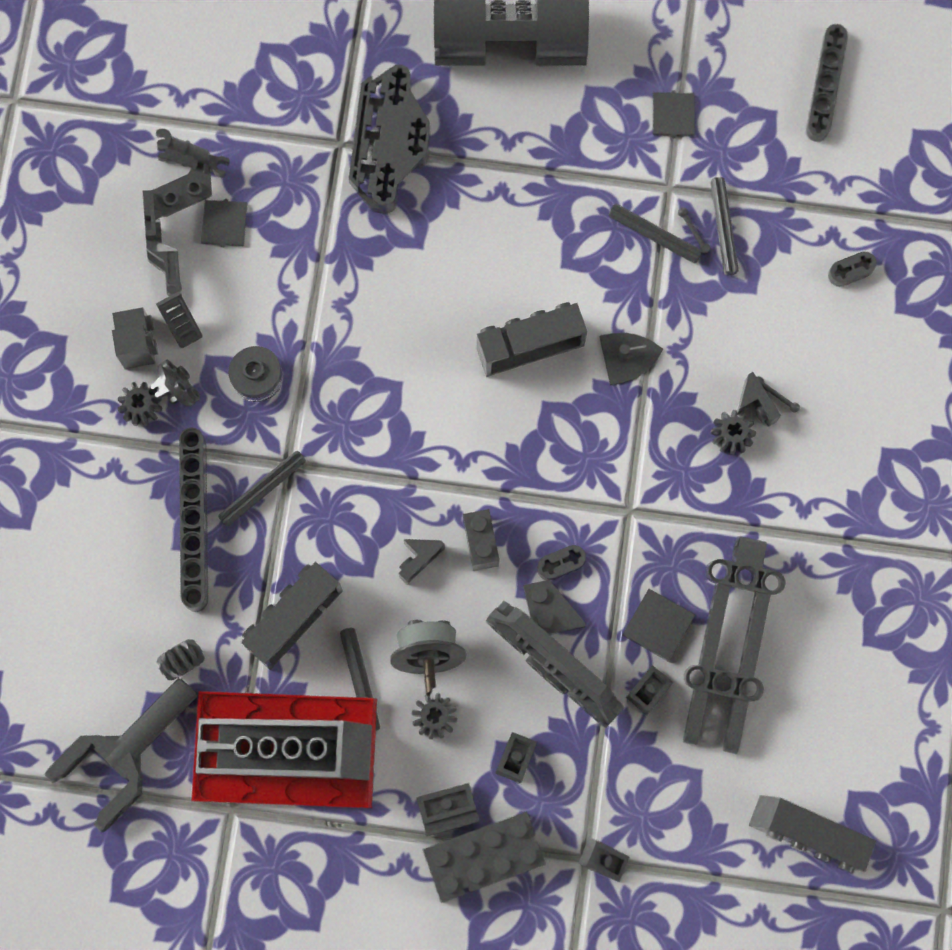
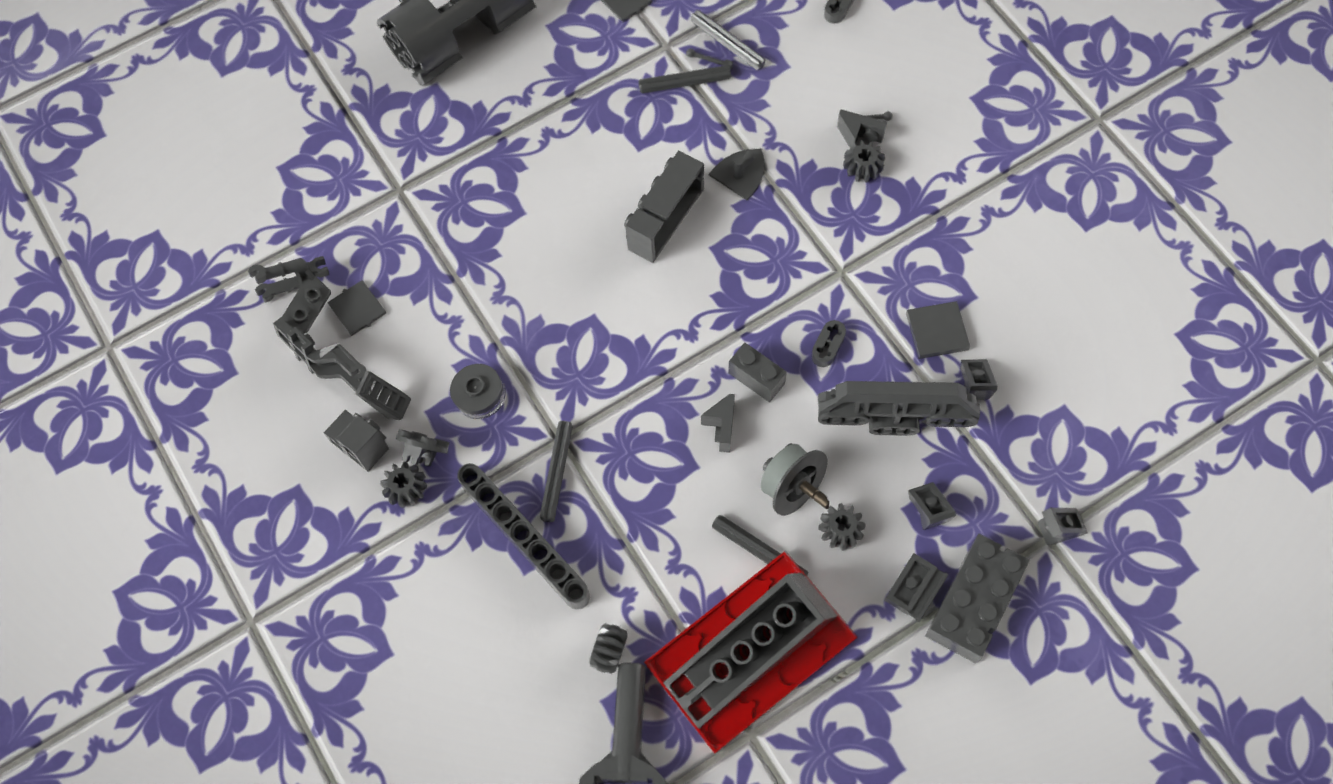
camera: 35 degrees left, 10 degrees down
(292, 615) = (667, 540): dark grey piece -> none
(393, 144) = (439, 155): dark grey connector -> none
(550, 608) = (841, 372): dark grey wing -> none
(747, 555) = (951, 234): dark grey beam -> none
(813, 833) = (1183, 378): dark grey wedge -> none

